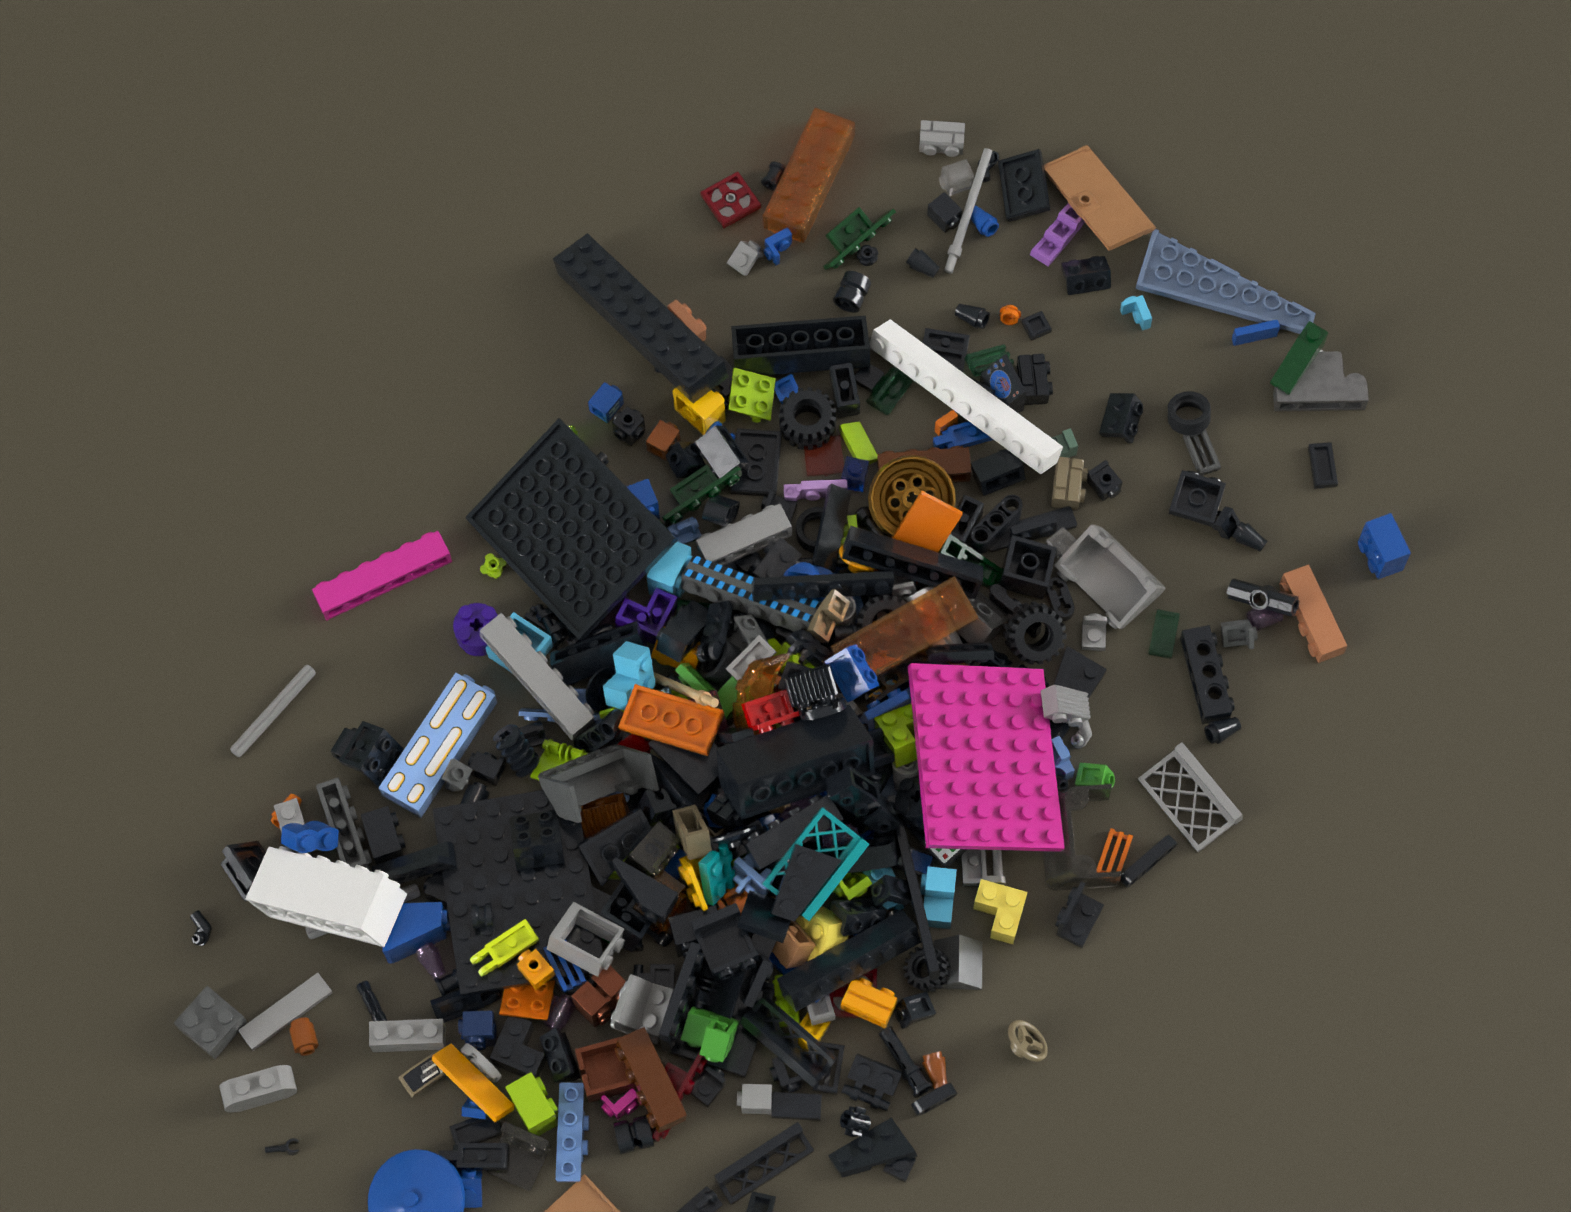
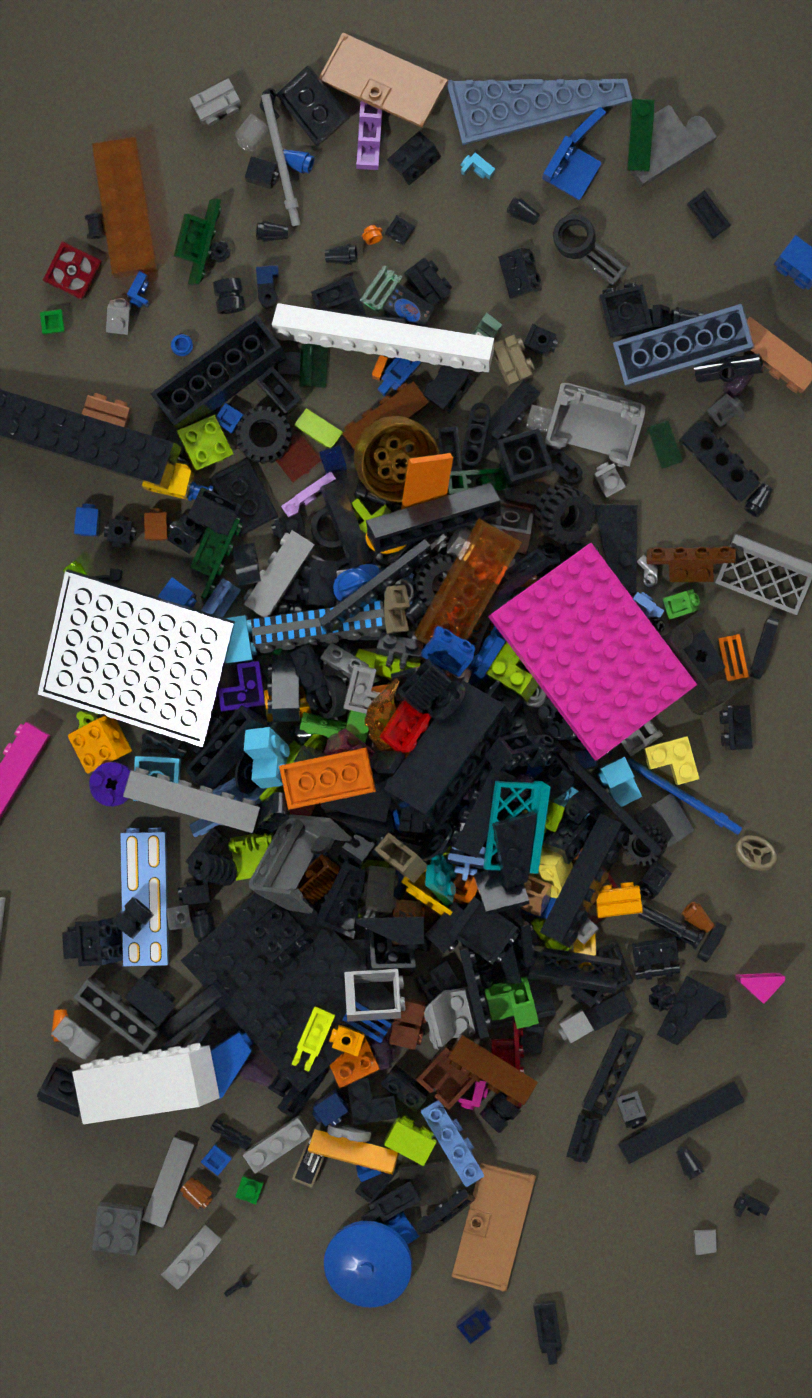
camera: 30 degrees left, 20 degrees up
(203, 928) = (60, 1158): black arm -> none
(309, 836) = (99, 1044): blue brick -> none
(342, 1014) = (216, 1159): none -> blue tile
(353, 1065) = (249, 1189): none -> green plate
(416, 746) = (133, 917): none -> black wheel
(492, 585) = (99, 743): none -> light orange bracket
(522, 1197) = (445, 1211): none -> black hinge
(686, 229) = (52, 322): none -> green plate
(701, 697) = (342, 748): tan bar -> none
(784, 310) = (182, 345): none -> blue plate
(890, 301) = (265, 284): none -> leg
(956, 1163) = (762, 984): none -> dark pink slope
(1013, 992) = (719, 818): none -> blue bar
(1065, 705) = (627, 563): light grey brick -> none
(1090, 821) = (712, 662): none -> black brick
(1125, 747) = (691, 563): none -> reddish brown bracket
(1155, 368) = (522, 211): none -> black cone
(1219, 357) = (571, 169): none -> blue bracket
(1232, 552) = (684, 345): none -> sand blue brick

